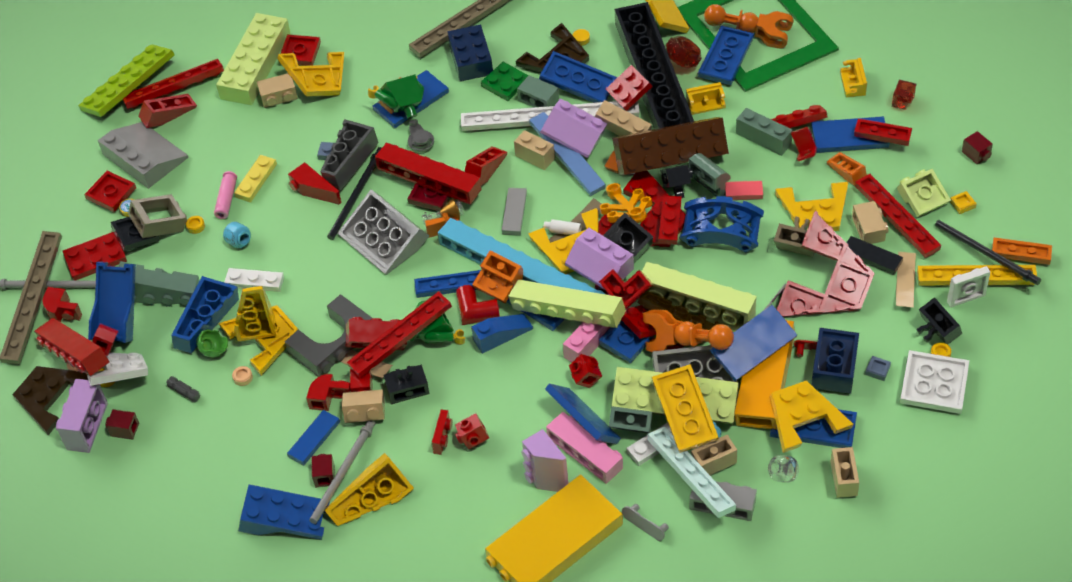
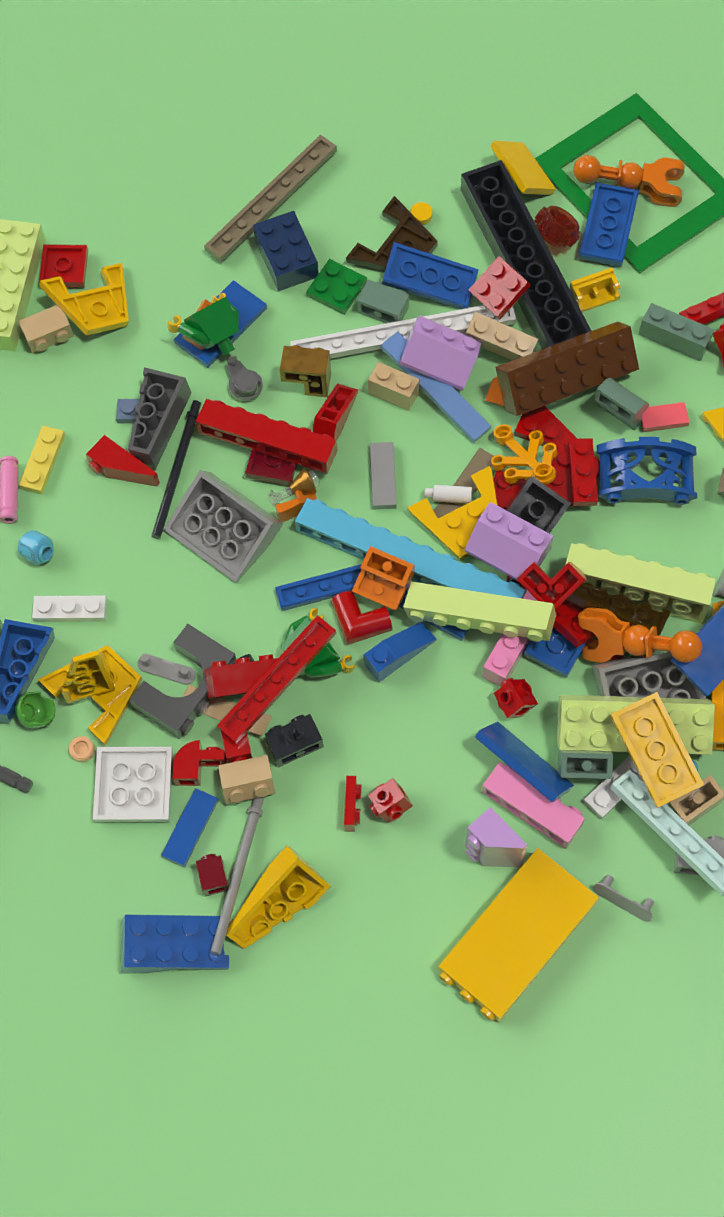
camera: 10 degrees left, 15 degrees up
(275, 402) = (133, 784): none -> white plate
(326, 331) = (166, 669): none -> light grey piece
(470, 129) = (307, 367): none -> pearl gold brick
(676, 177) = (581, 412): black brick -> none

